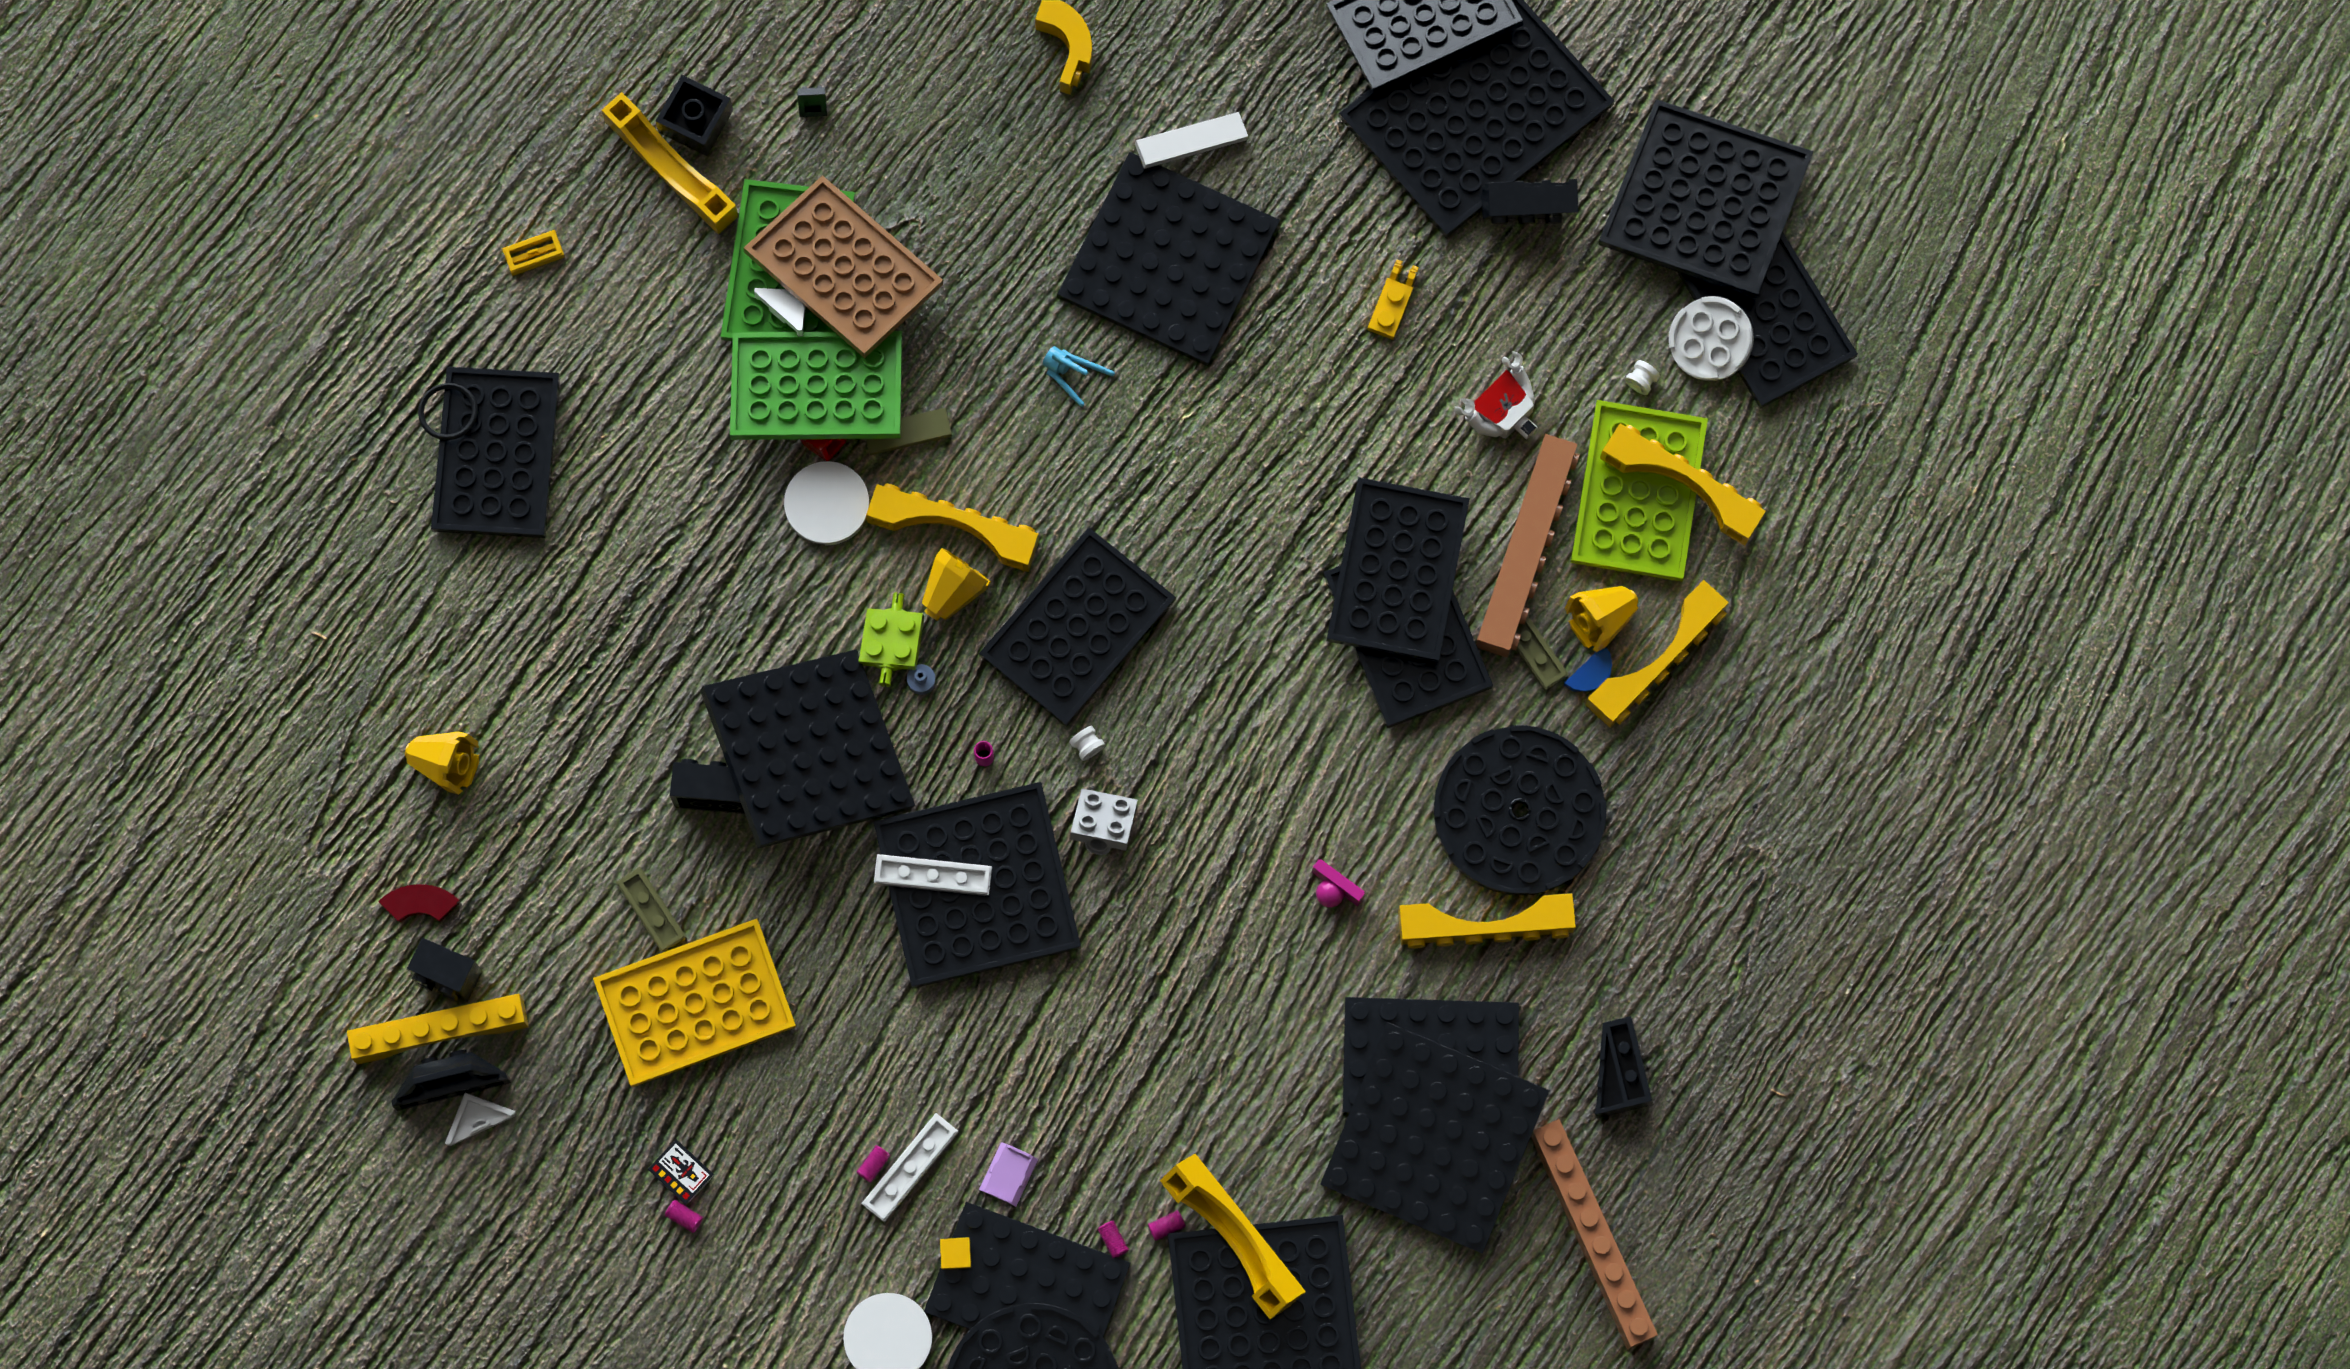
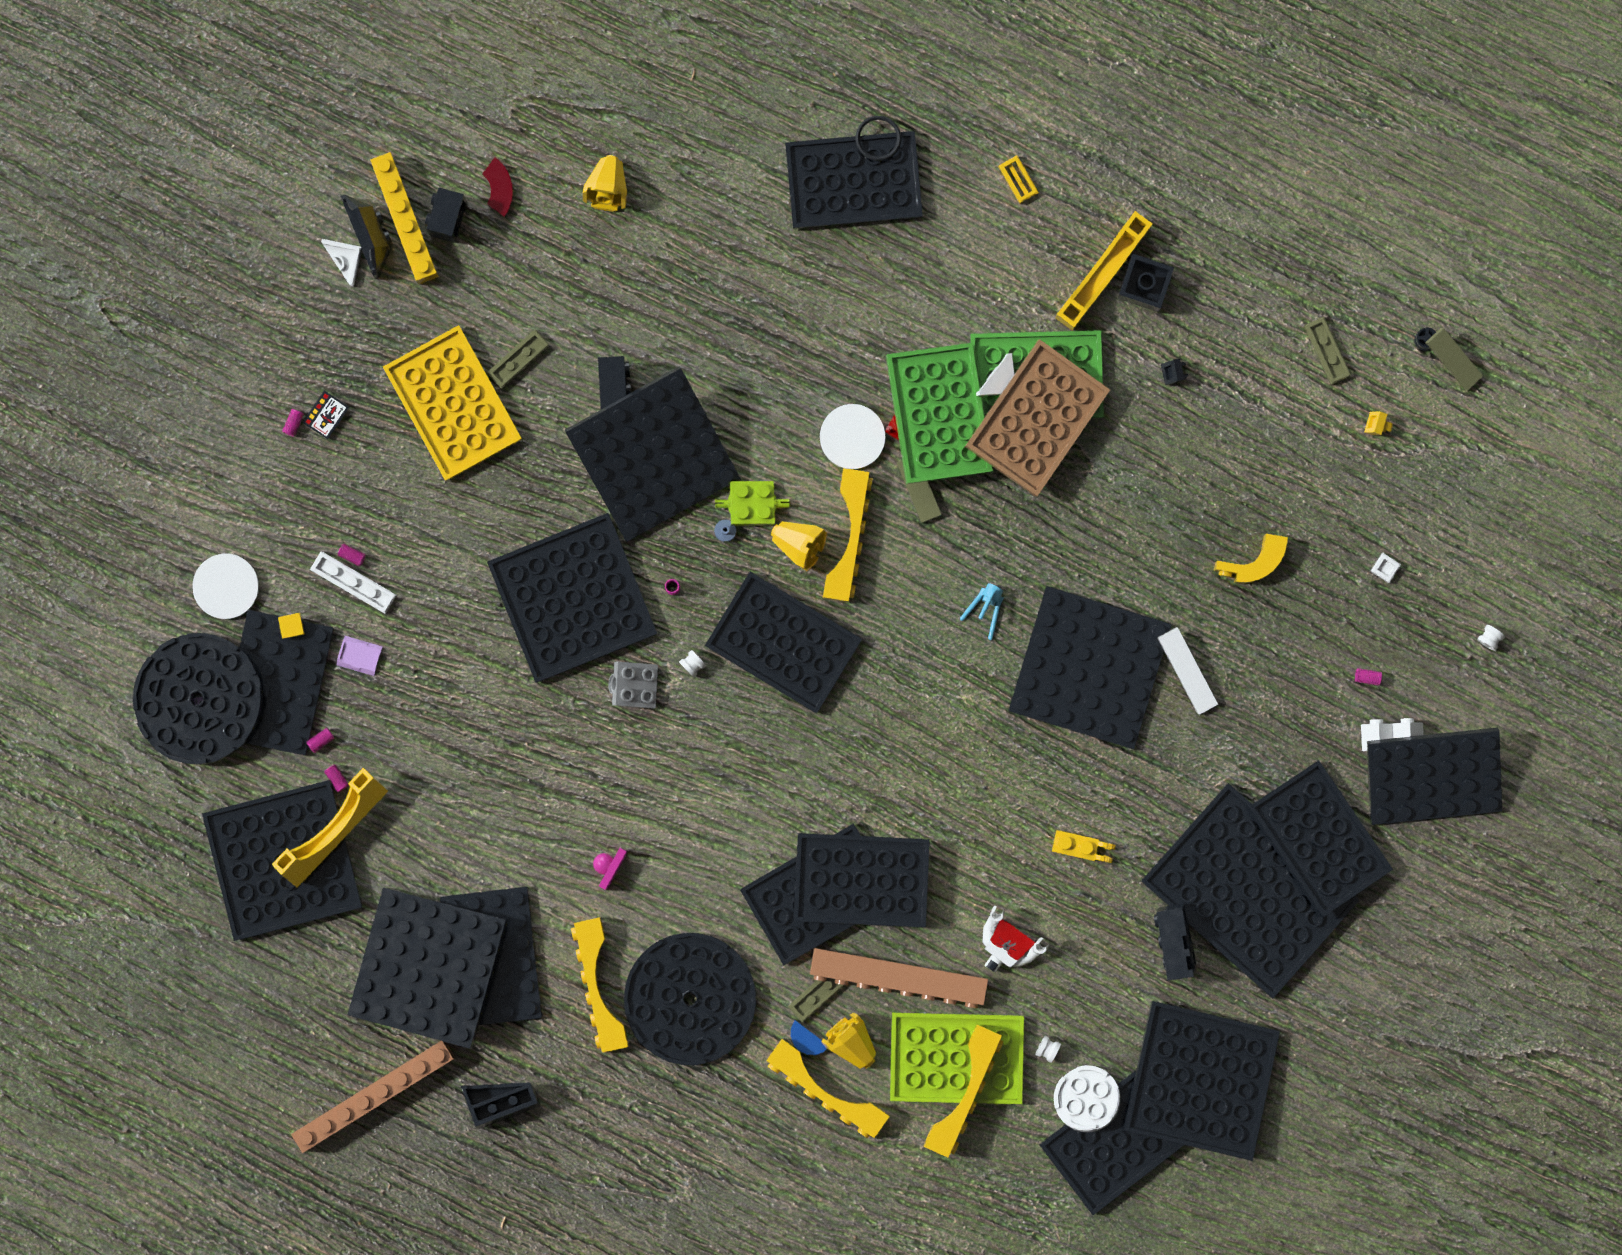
camera: 80 degrees right, 10 degrees up
(932, 875) = (572, 563): white tile -> none

